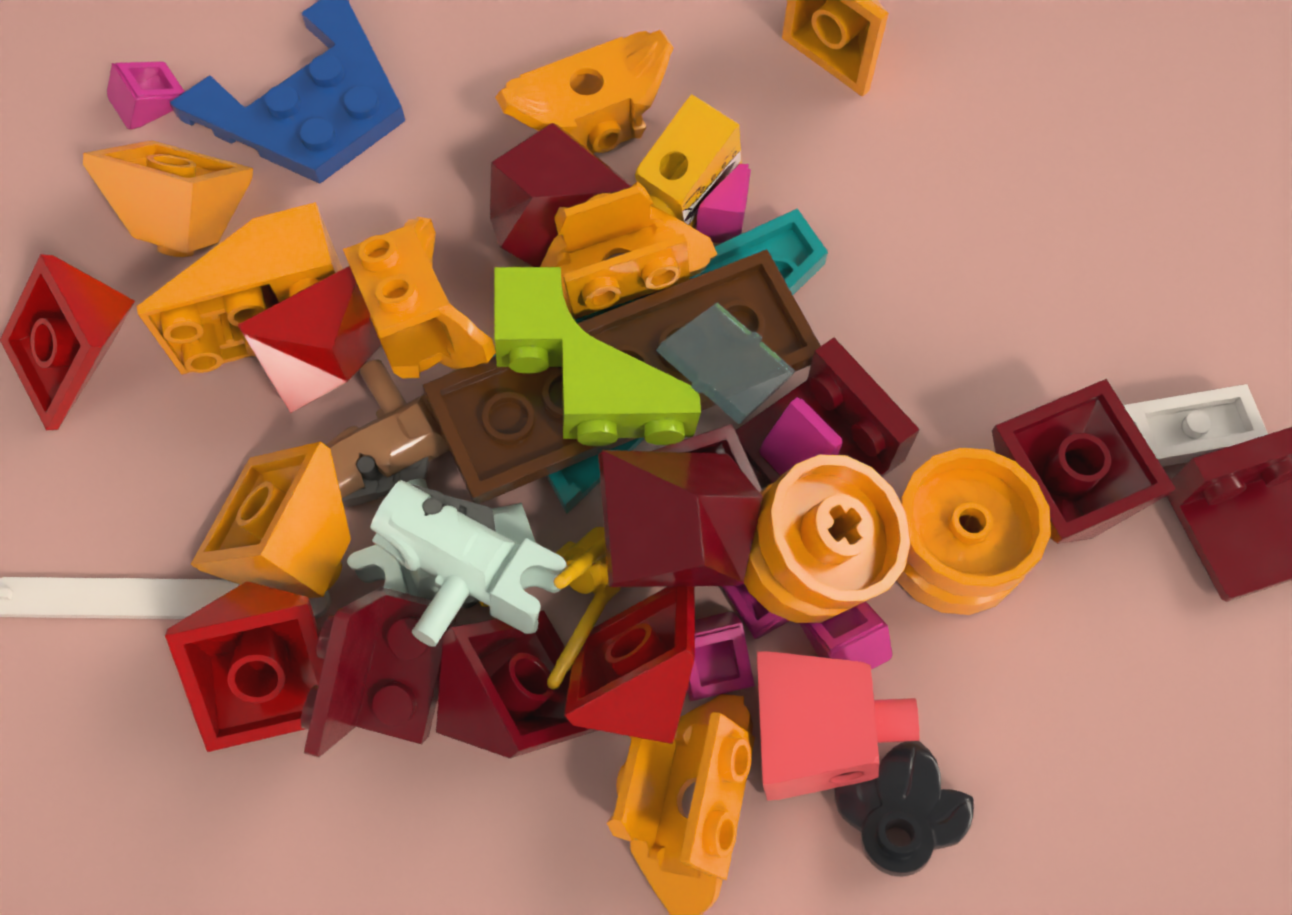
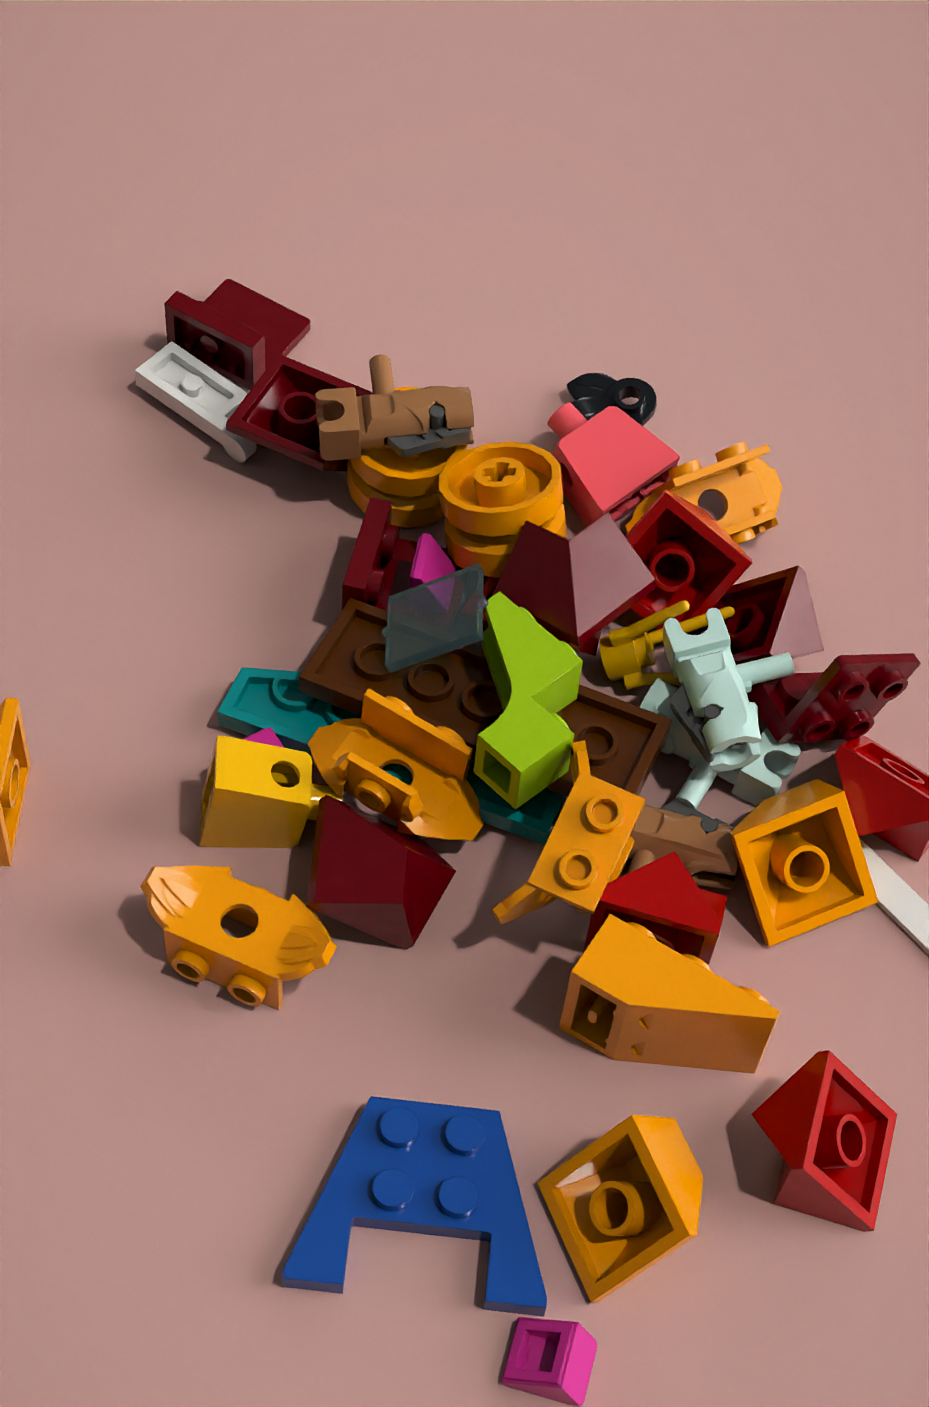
camera: 135 degrees left, 10 degrees down
(980, 495) = (392, 418): none -> medium nougat piece

